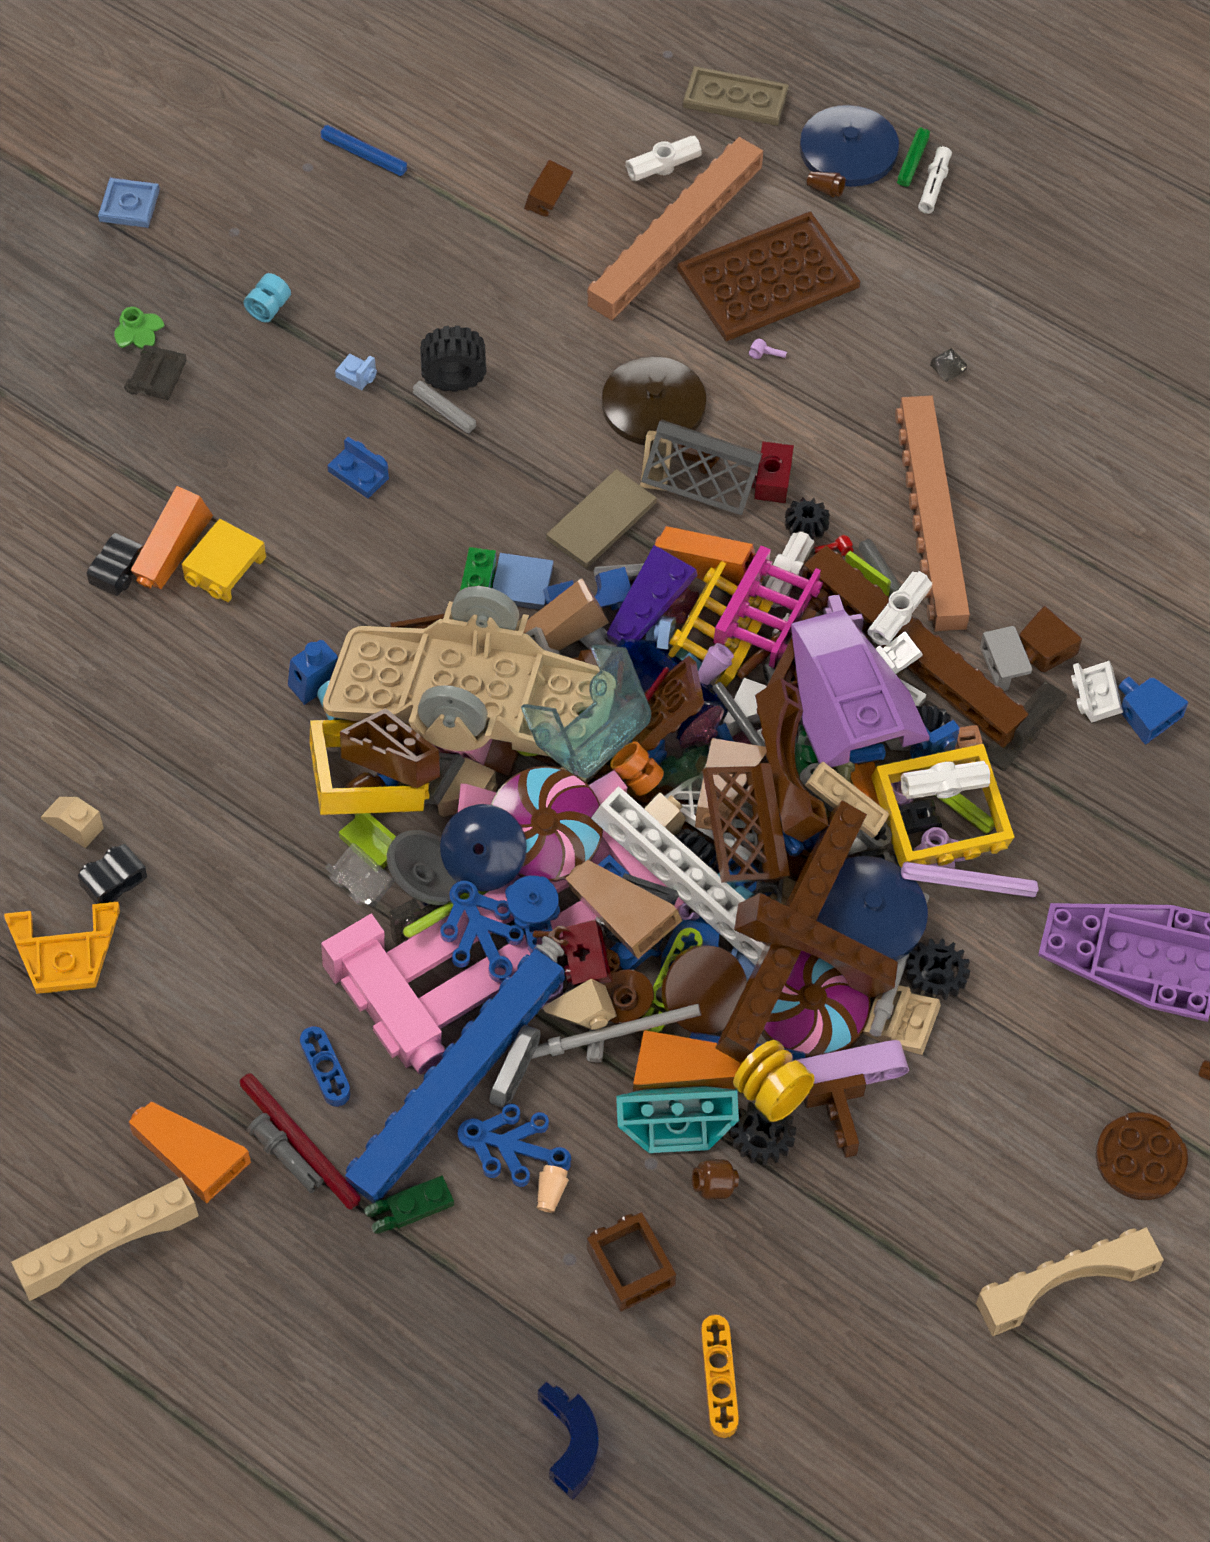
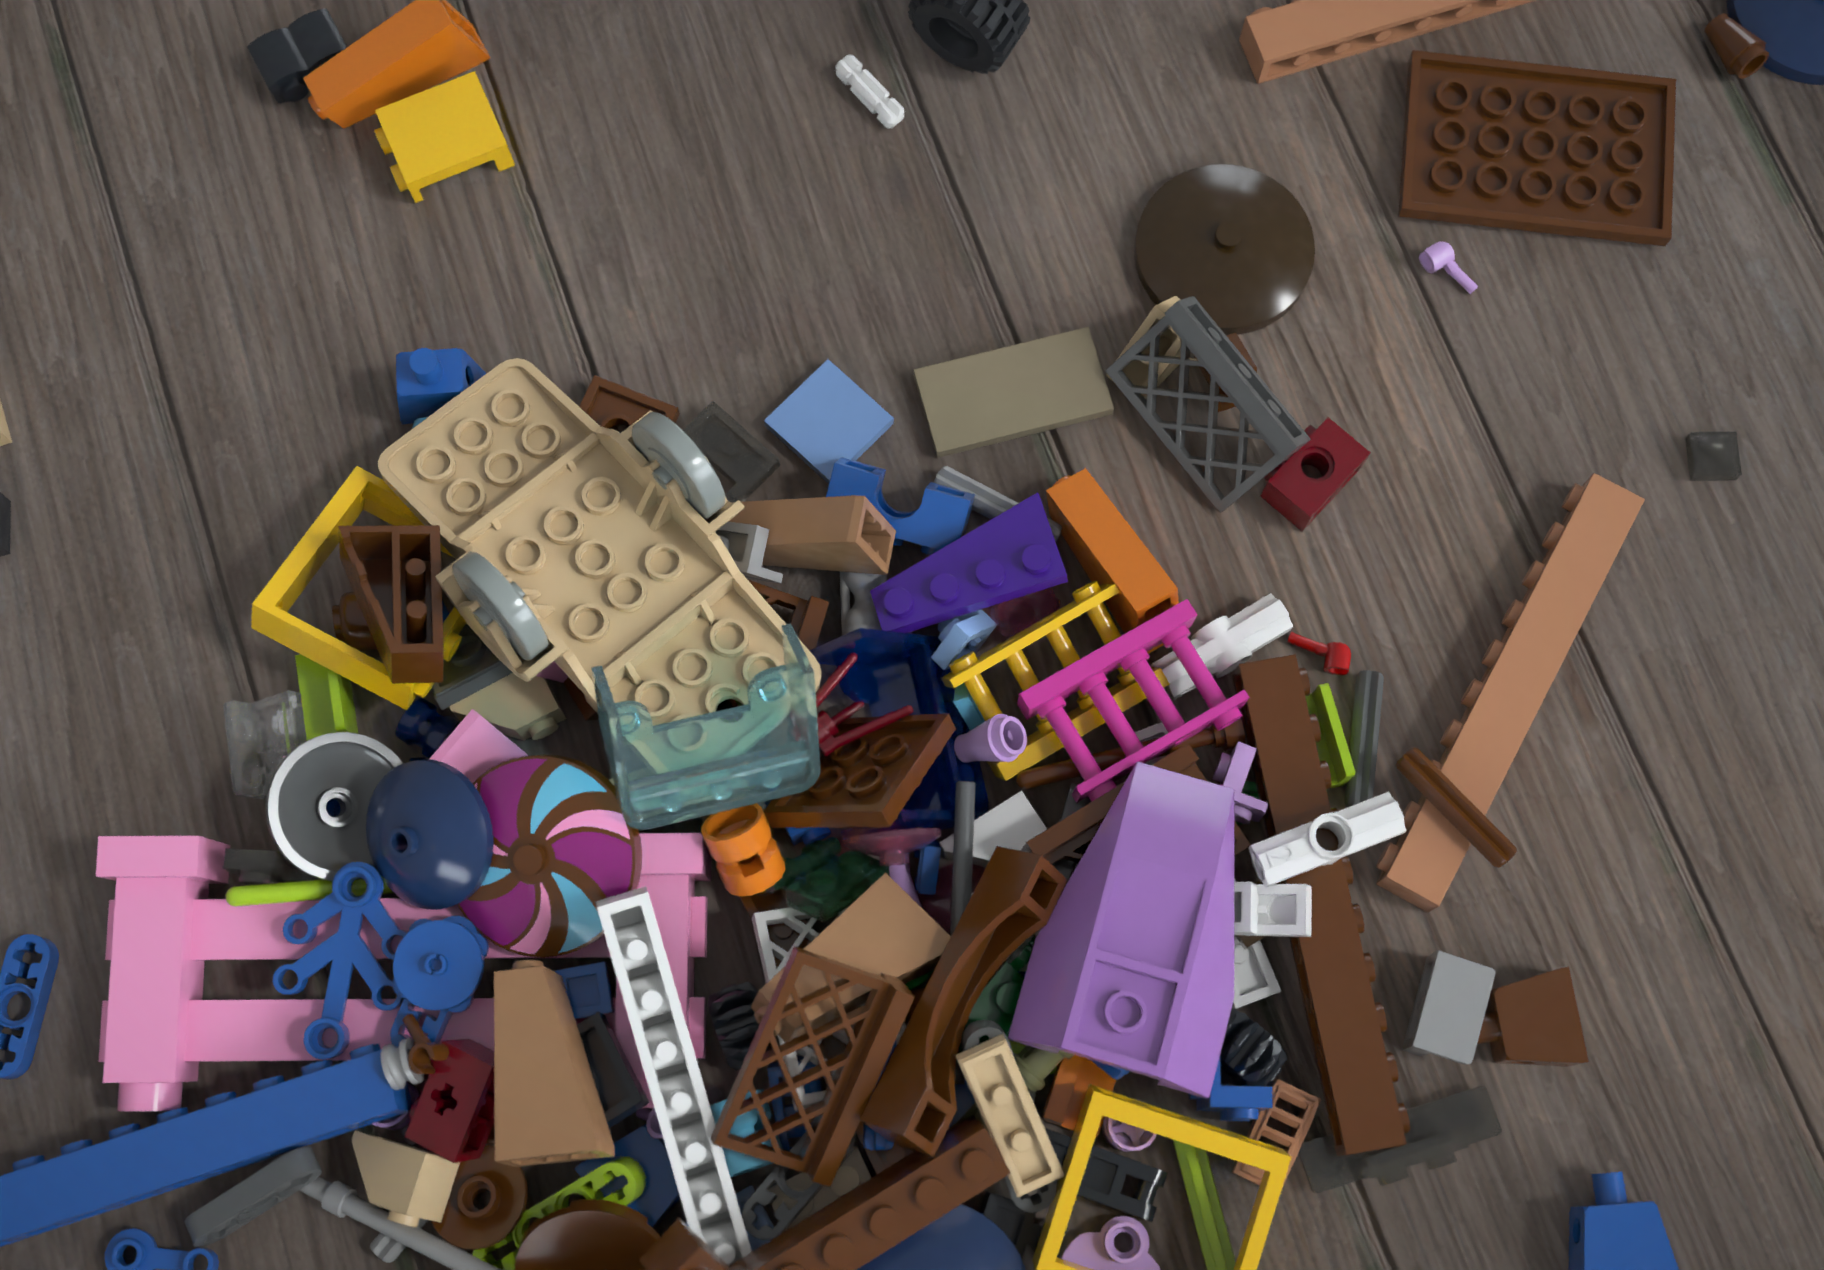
camera: 35 degrees right, 15 degrees up
(359, 468) = (729, 107): blue bracket -> none
(424, 424) = (869, 91): none -> white axle
(434, 823) = (425, 727): none -> clear blue wheel
(444, 406) = (918, 81): light grey axle -> none
(479, 568) = (762, 381): green brick -> none
(667, 812) = (724, 951): tan slope -> none
(807, 518) = (1319, 570): black gear -> none
(945, 780) = (1183, 1187): white piece -> none
(946, 568) = (1456, 807): none -> reddish brown axle
(1097, 691) = (1553, 1158): white bracket -> none

